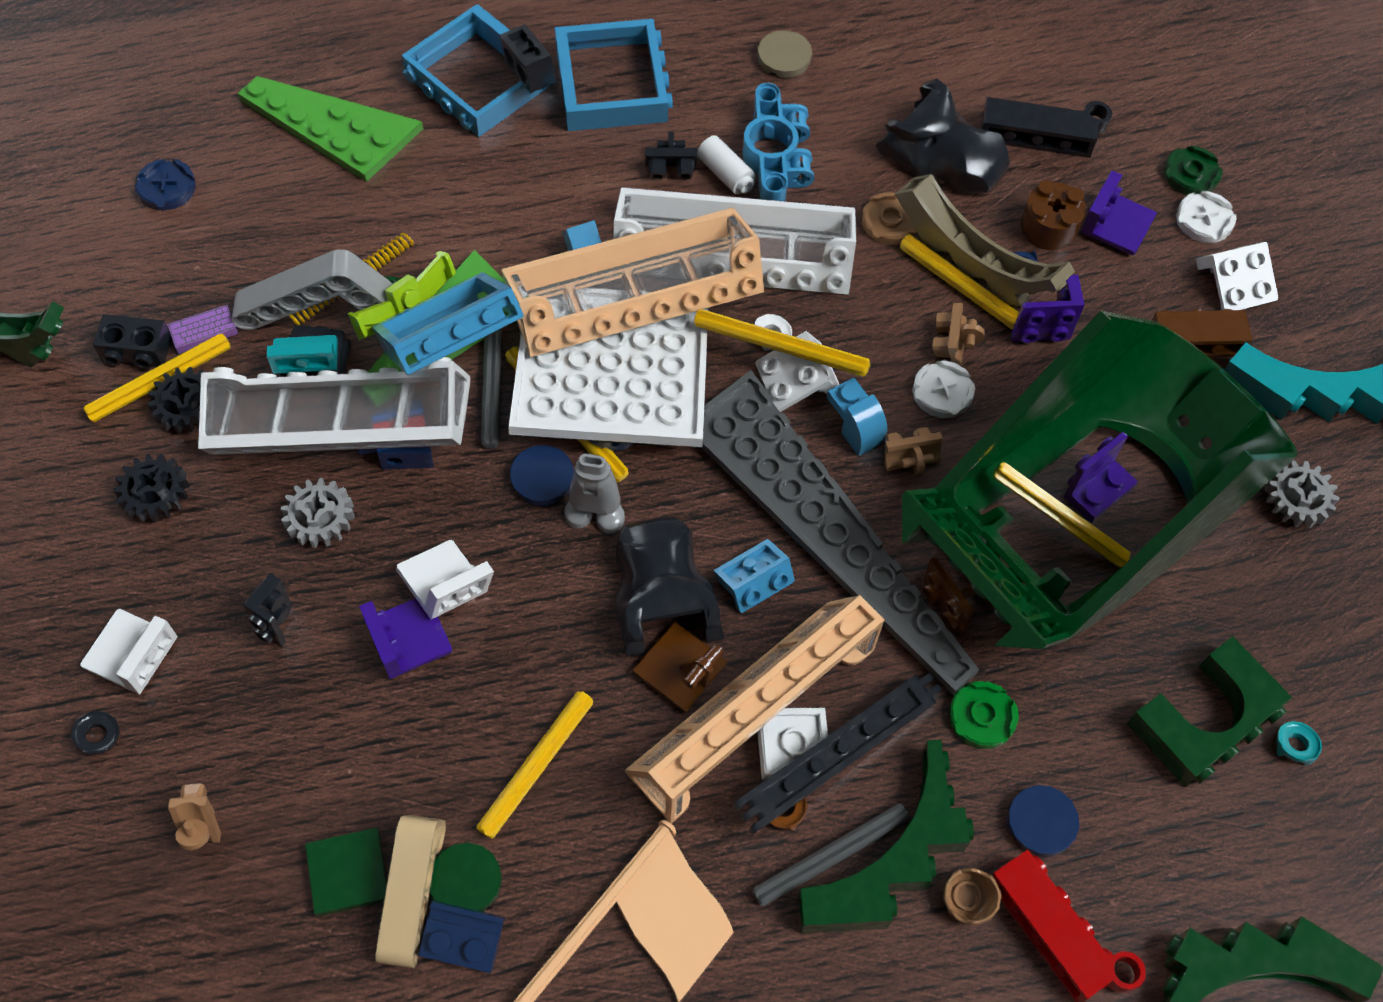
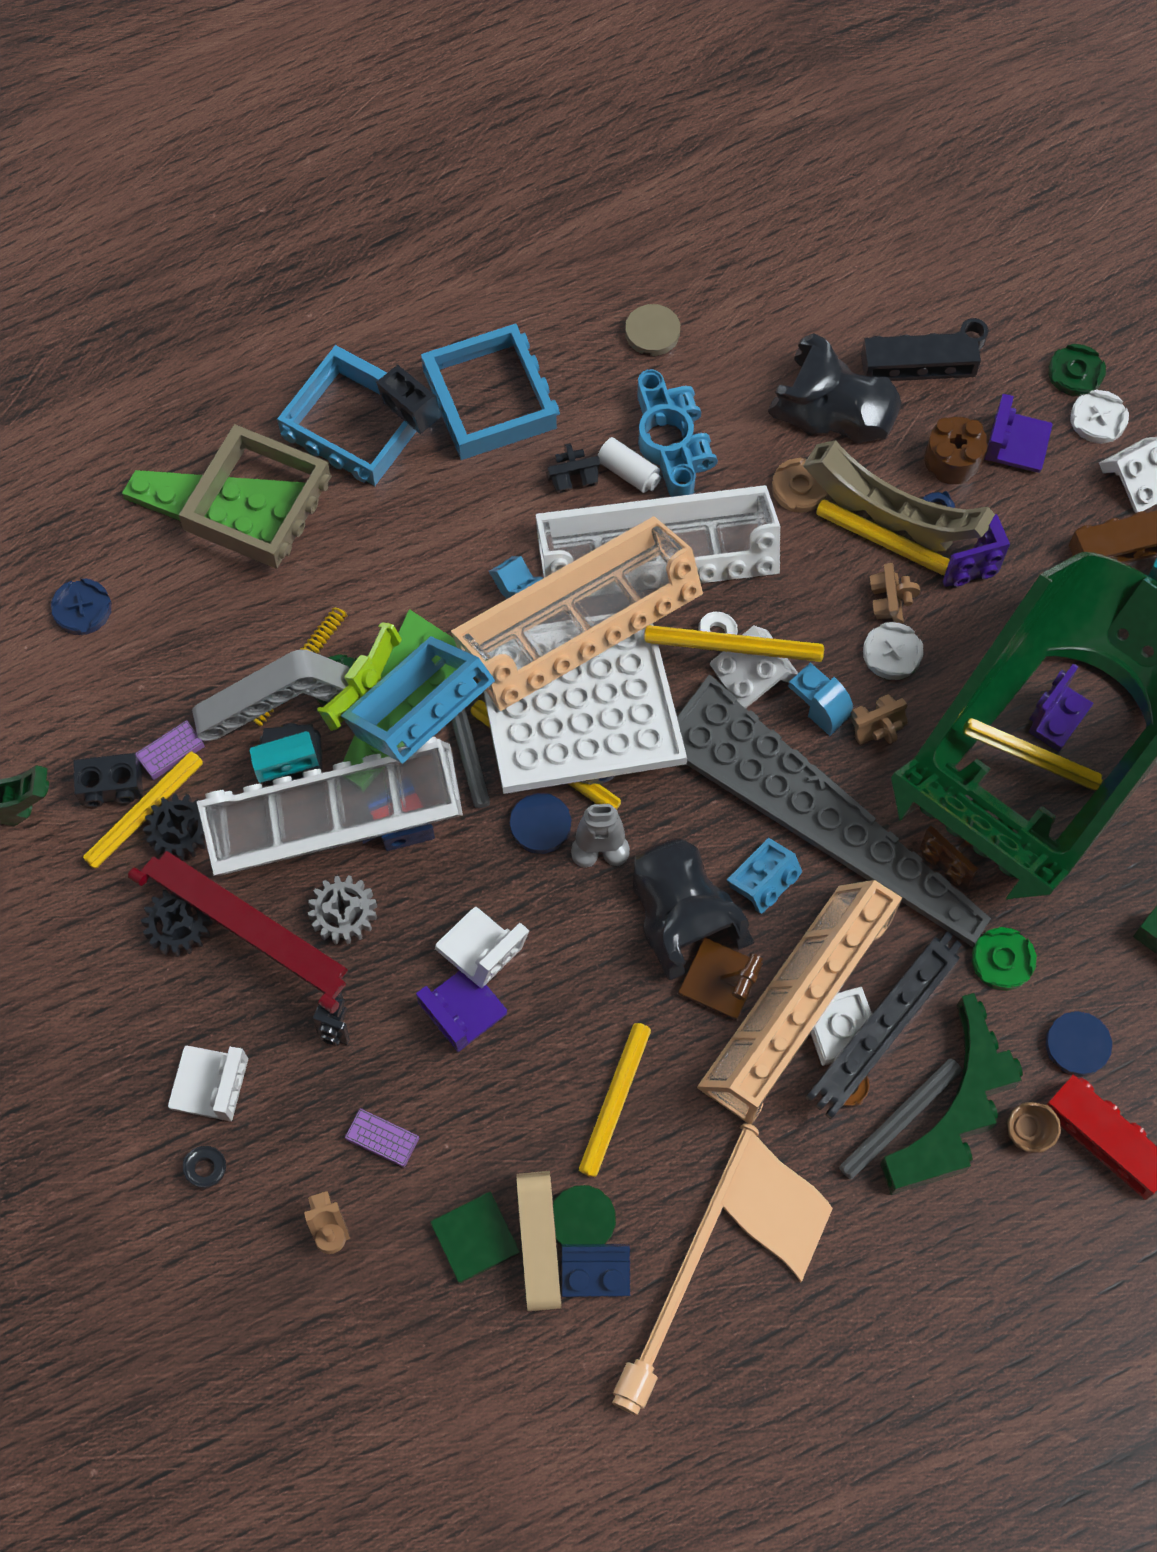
camera: 10 degrees left, 5 degrees up
(214, 502) = (247, 924): none -> dark red piece
(285, 747) = (382, 1138): none -> medium lavender tile
(332, 87) = (215, 476): none -> dark tan window

